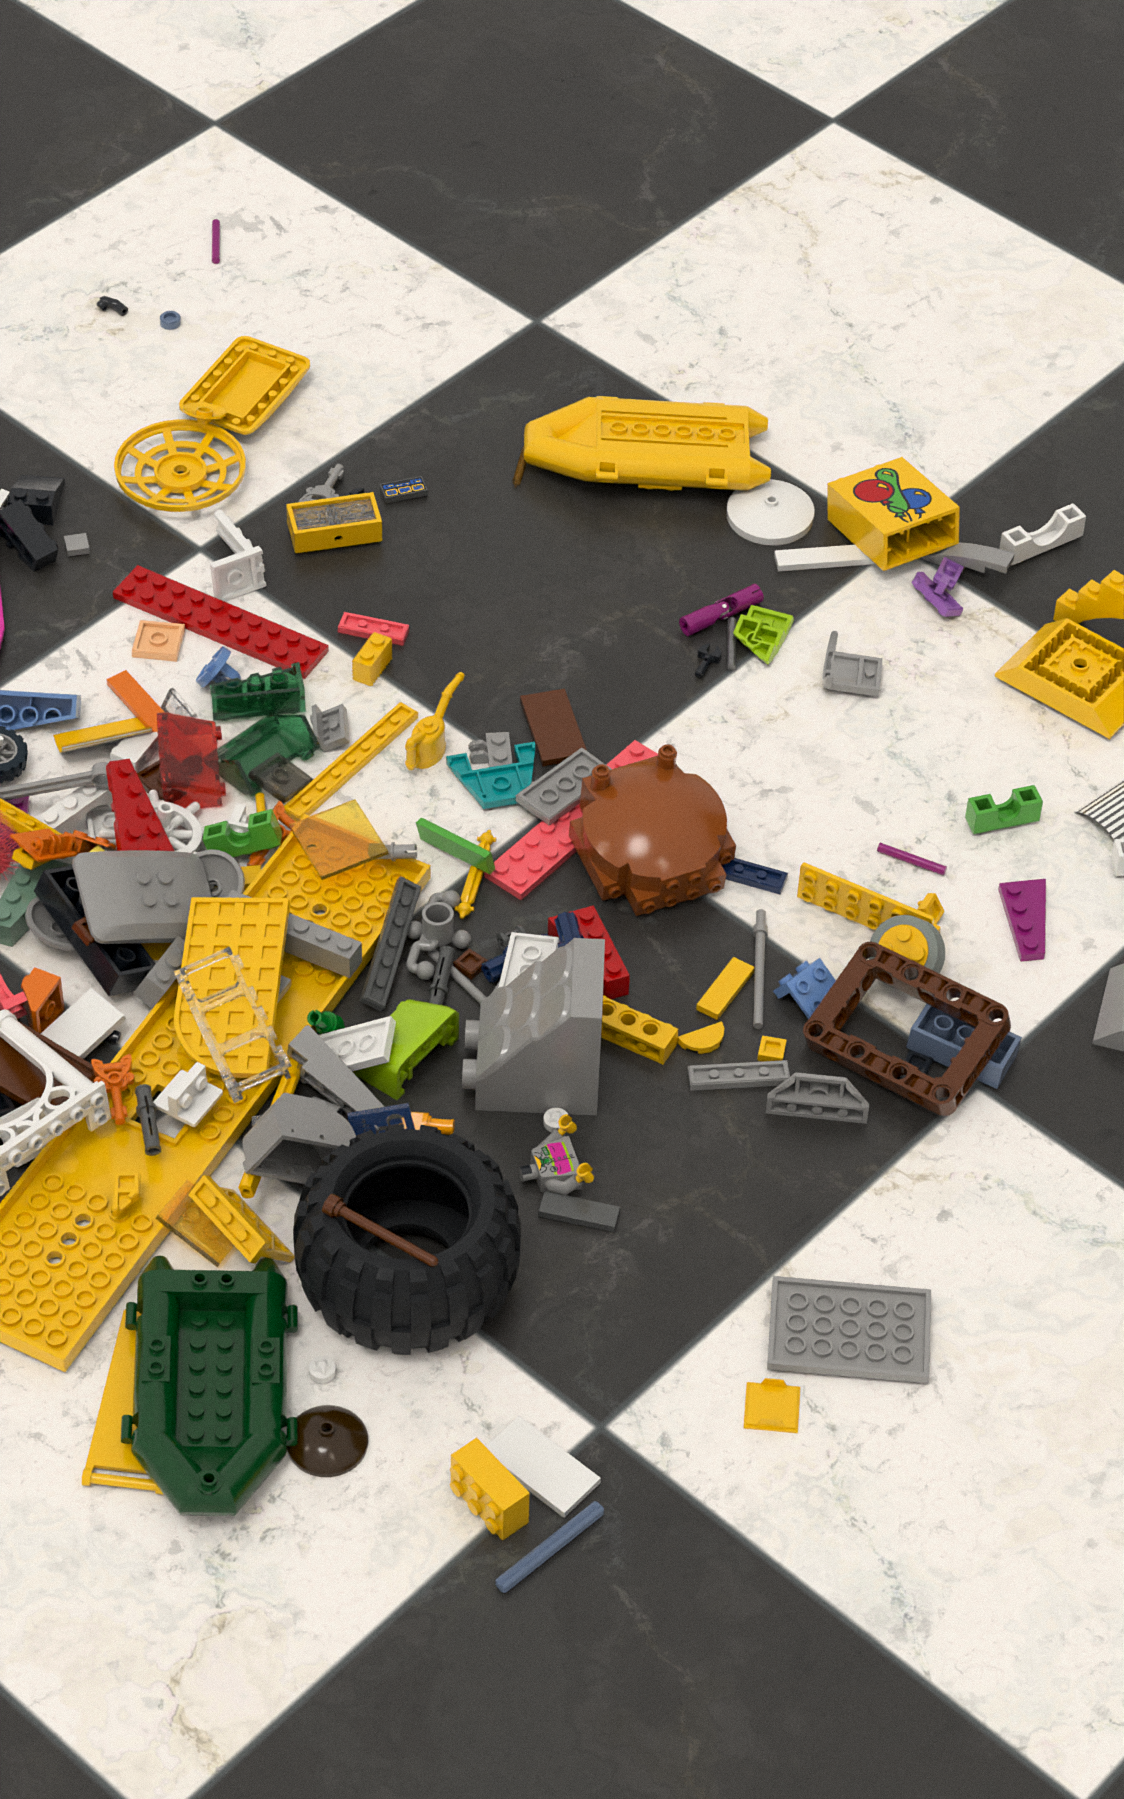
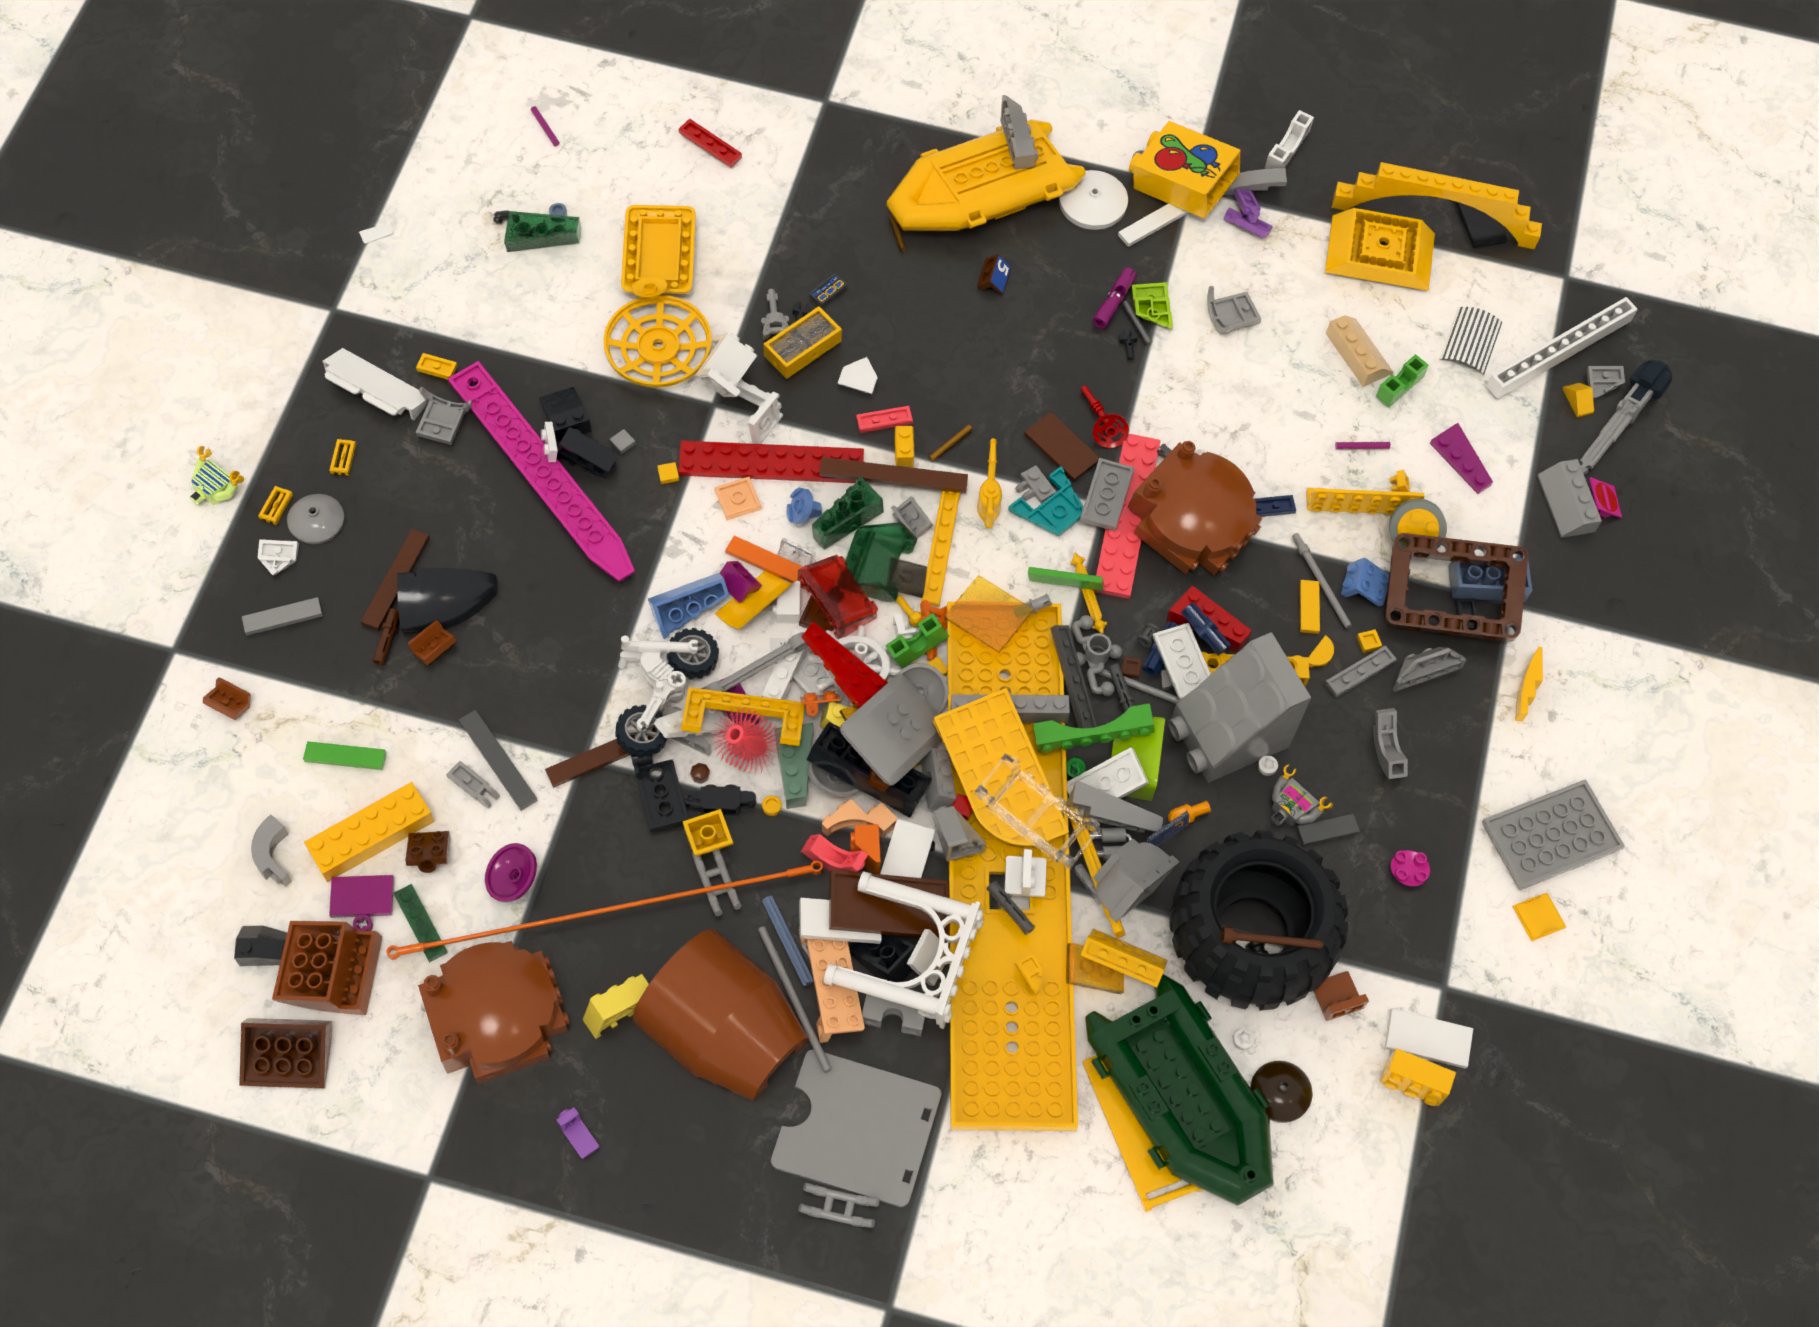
camera: 30 degrees left, 15 degrees up
(45, 844) = (796, 720): orange hinge -> none
(73, 983) = (851, 814): none -> light nougat arch
(99, 709) = (738, 580): none -> magenta panel
(102, 590) = (668, 473): none -> yellow tile
(116, 1079) = (966, 888): orange piece -> none
(134, 326) = (538, 230): none -> clear green wedge
(138, 1026) = (956, 834): none -> light grey slope
(166, 1006) = (962, 805): none -> red tile
(225, 502) = (726, 364): none -> white bracket
(340, 679) = (894, 475): none -> reddish brown tile
(375, 578) = (859, 376): none -> white slope
(378, 313) = (710, 143): none -> red plate
(411, 996) = (1133, 722): none -> bright green arch
(428, 677) = (952, 441): none -> pearl gold bar
(463, 1375) = (1339, 996): none -> dark orange bracket
(549, 1547) = (1473, 1096): sand blue axle -> none
(601, 540) = (994, 274): none -> panel
(616, 724) = (1108, 425): none -> red dish
(648, 1288) = (1410, 868): none -> dark pink dish
(710, 1161) = (1387, 746): none -> light grey arch
(711, 405) = (1017, 134): none -> light grey wedge
(938, 1163) = (1531, 680): none -> yellow slope
(977, 760) = (1357, 350): none -> tan slope

